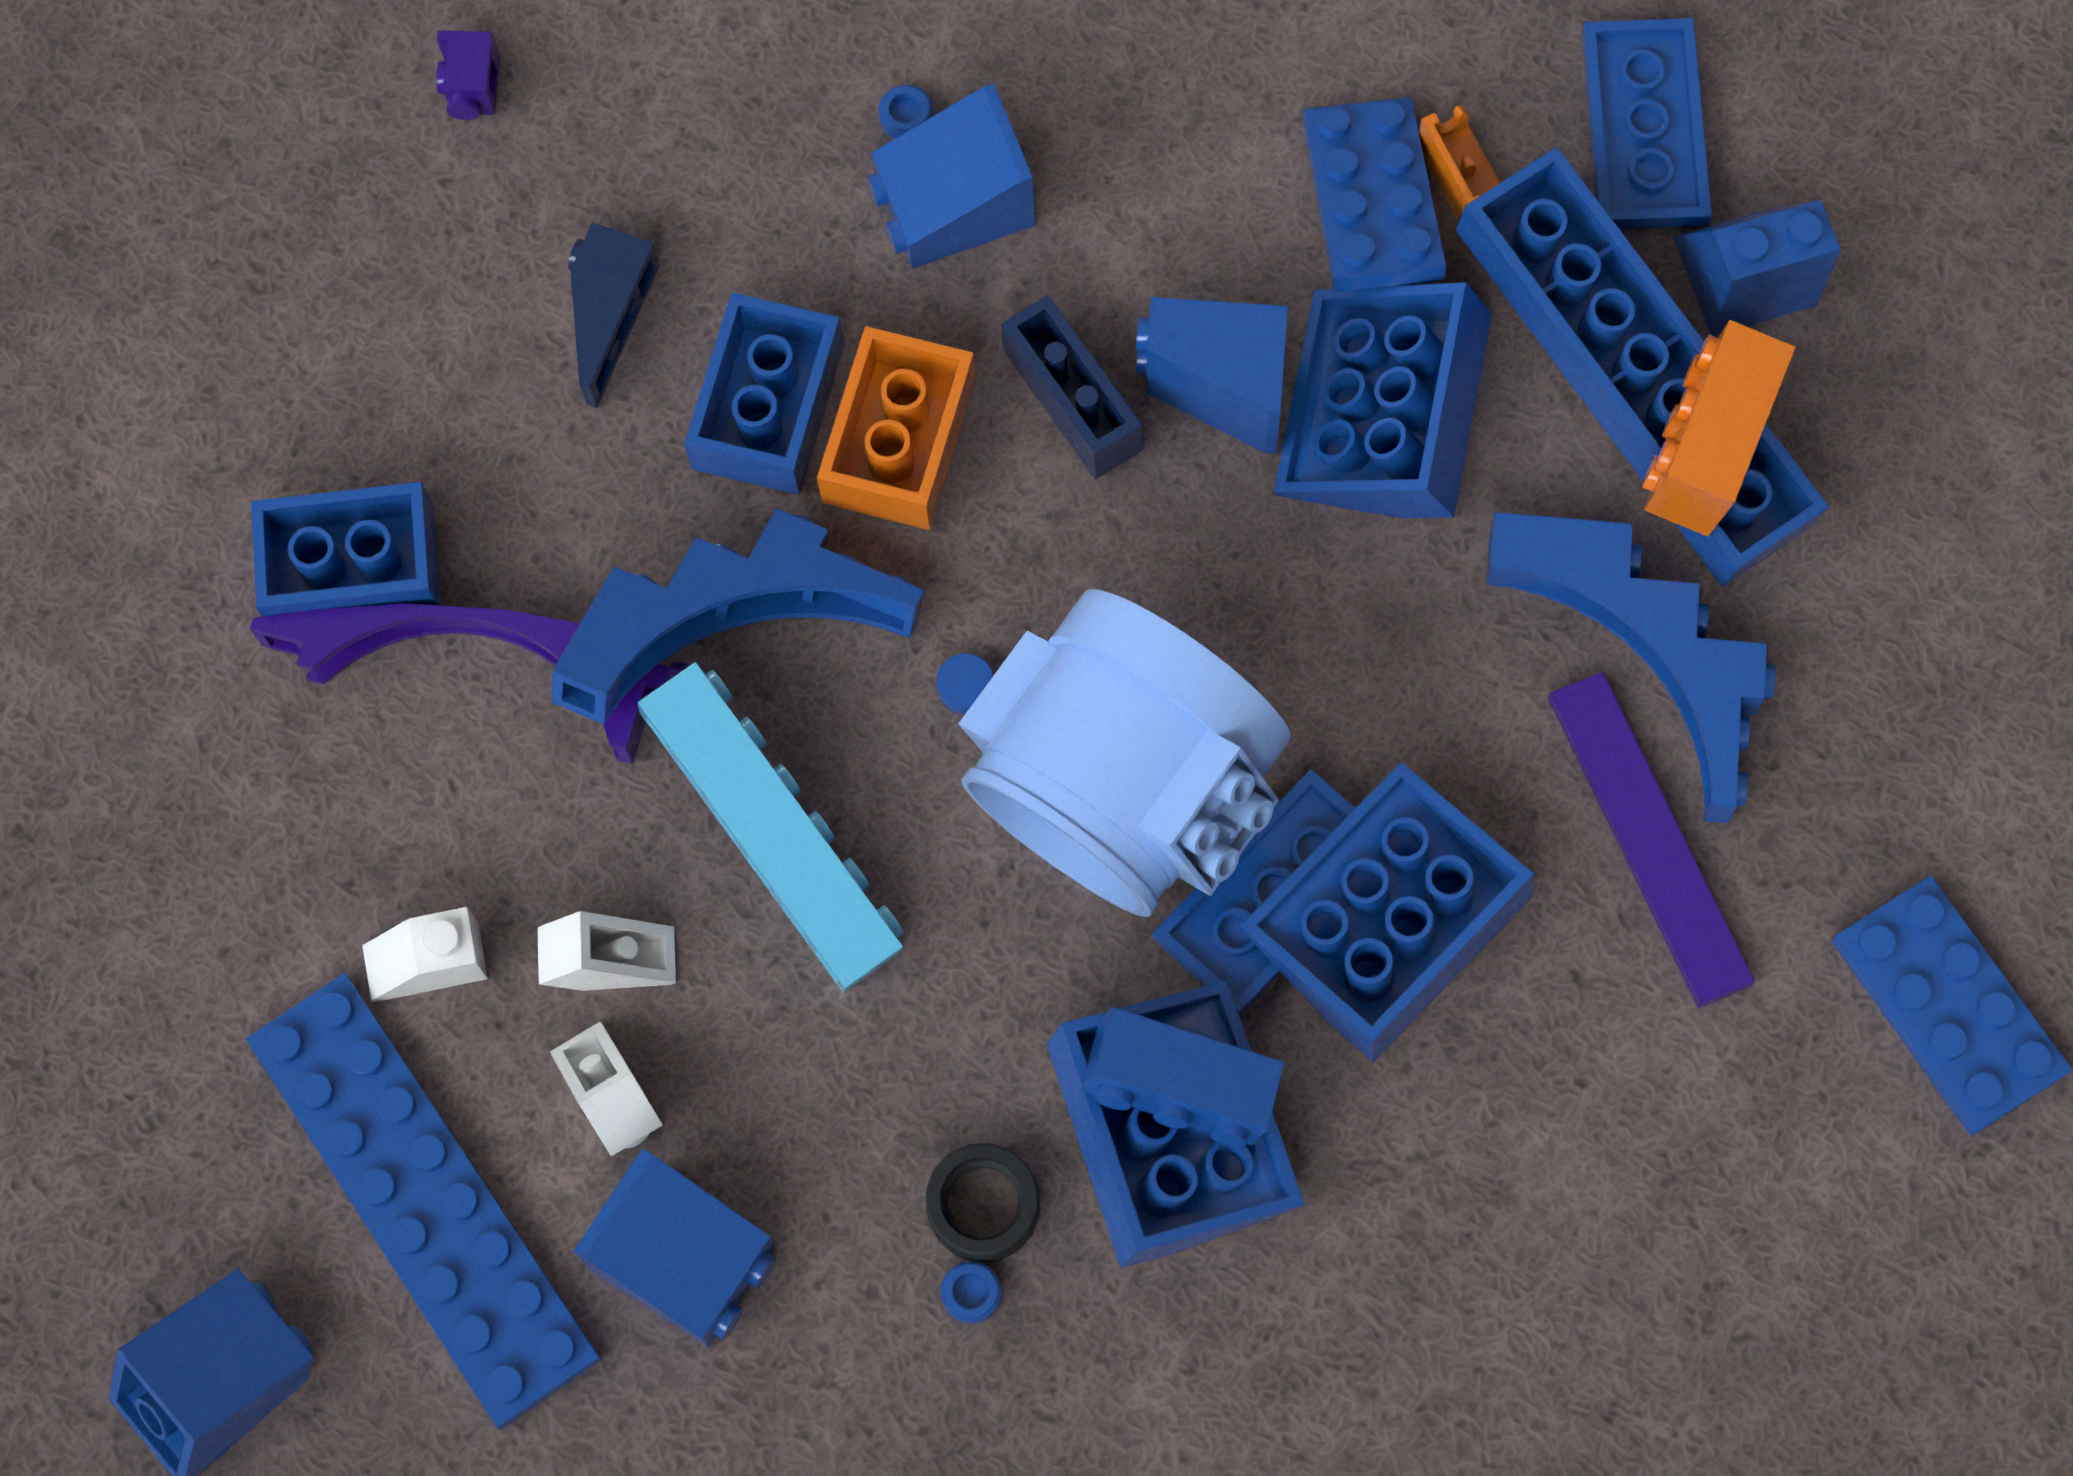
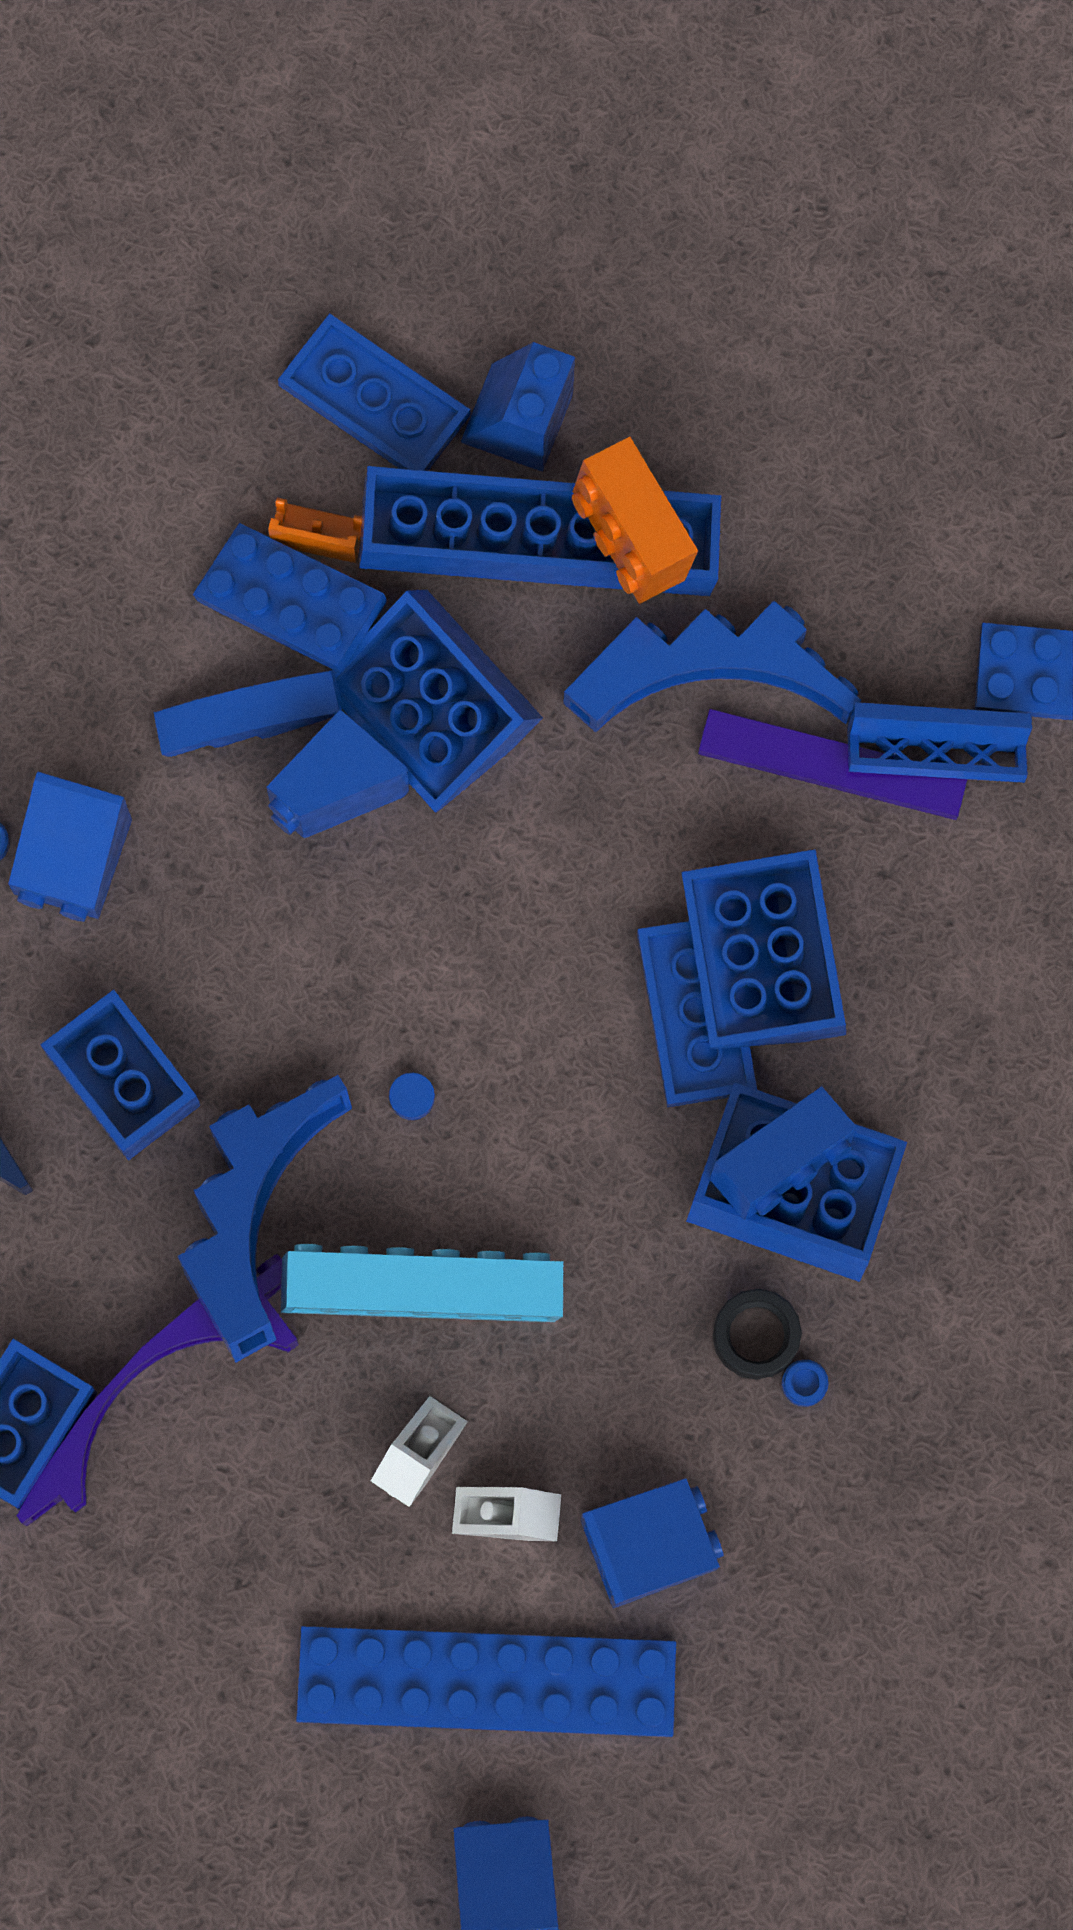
camera: 60 degrees left, 5 degrees up
(425, 955) = (330, 1569): white slope -> none
(897, 428) = (212, 1009): orange brick -> none
(1072, 387) = (271, 881): dark blue brick -> none
(1125, 753) = (557, 1033): light blue cylinder -> none
(1226, 243) = (247, 713): none -> blue slope
(1775, 911) = (937, 733): none -> blue fence

